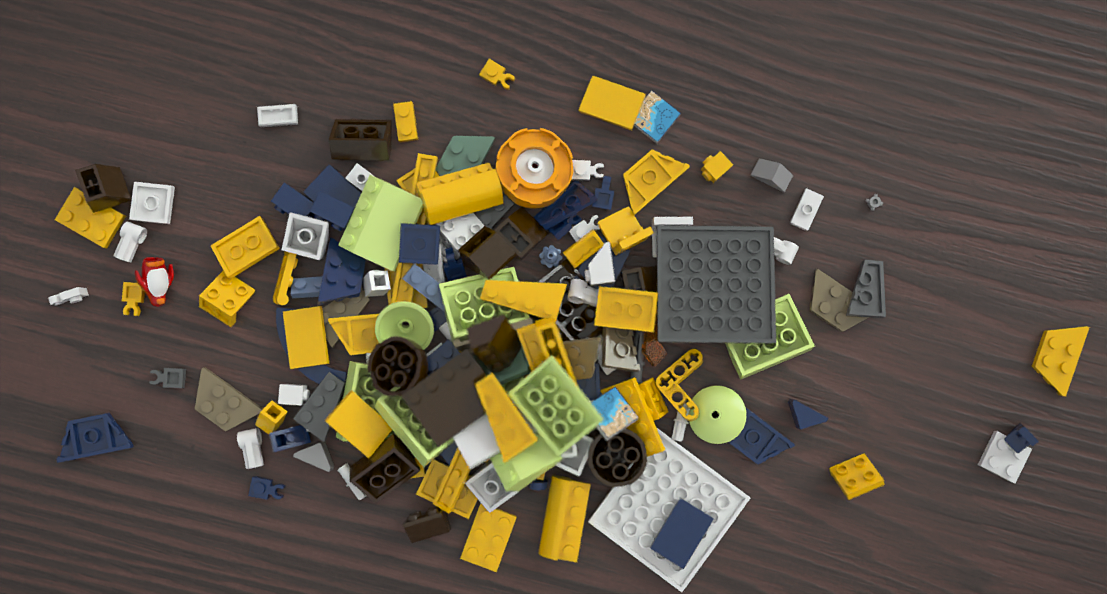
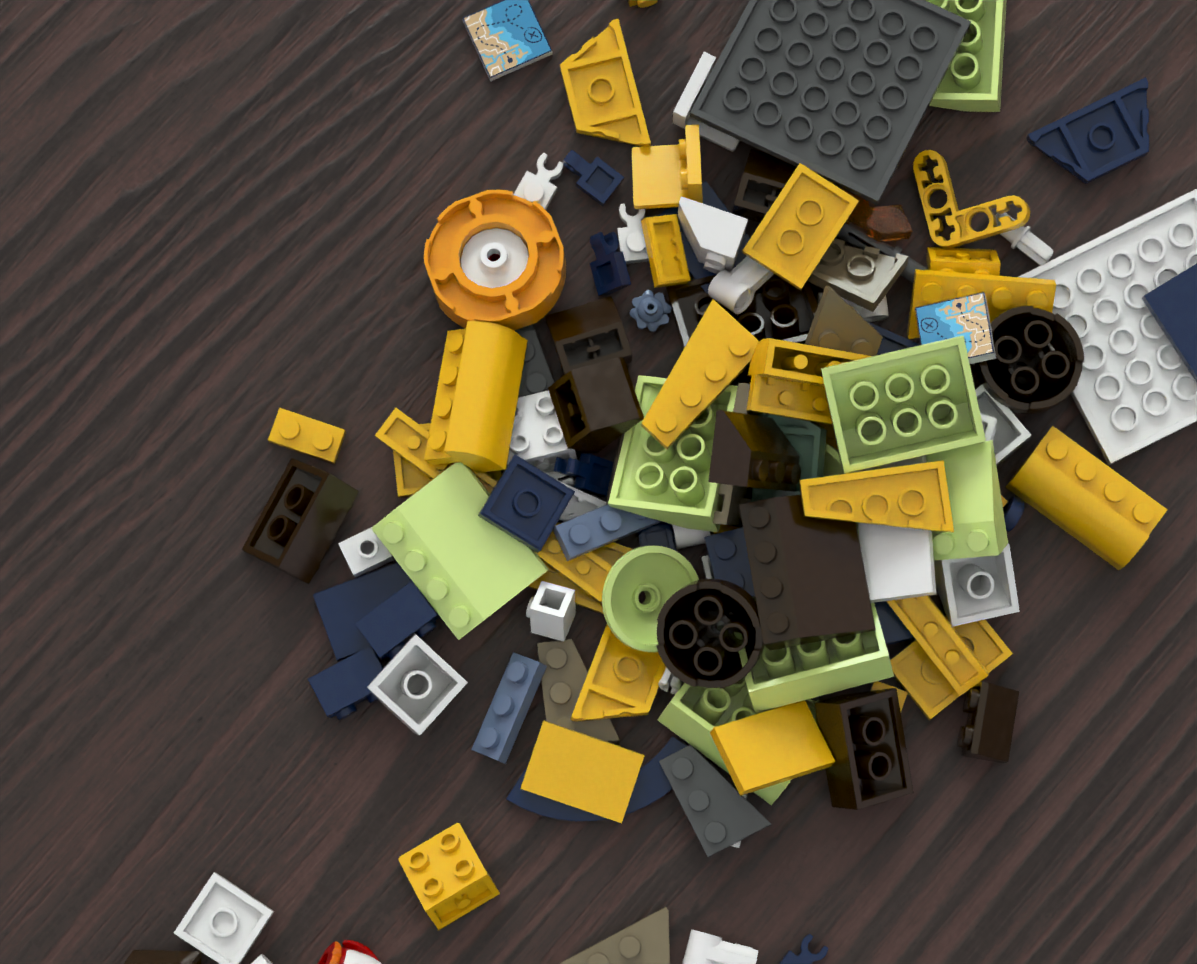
camera: 60 degrees left, 5 degrees down
(244, 247) = (379, 800): yellow plate -> none
(271, 417) = (687, 894): yellow brick -> none
(277, 115) = (187, 639): white plate -> none
(285, 279) = (466, 760): yellow plate -> none
(289, 438) = (735, 879): dark blue slope -> none
(293, 394) = (666, 840): white brick -> none
(316, 455) = (785, 852): light grey slope -> none
(341, 274) = (507, 660): dark blue wing -> none
(345, 472) = (843, 818): white axle -> none
(464, 153) = (410, 367): sand green wing -> none
(488, 538) = (1058, 639): yellow plate -> none
(495, 73) = (302, 253): yellow plate -> none
(569, 203) = (581, 234): dark blue wing -> none
(612, 102) = (450, 90): yellow tile -> none
(731, 414) = (1045, 148): yellowish green dish -> none
(805, 416) = (1106, 41): dark blue slope -> none

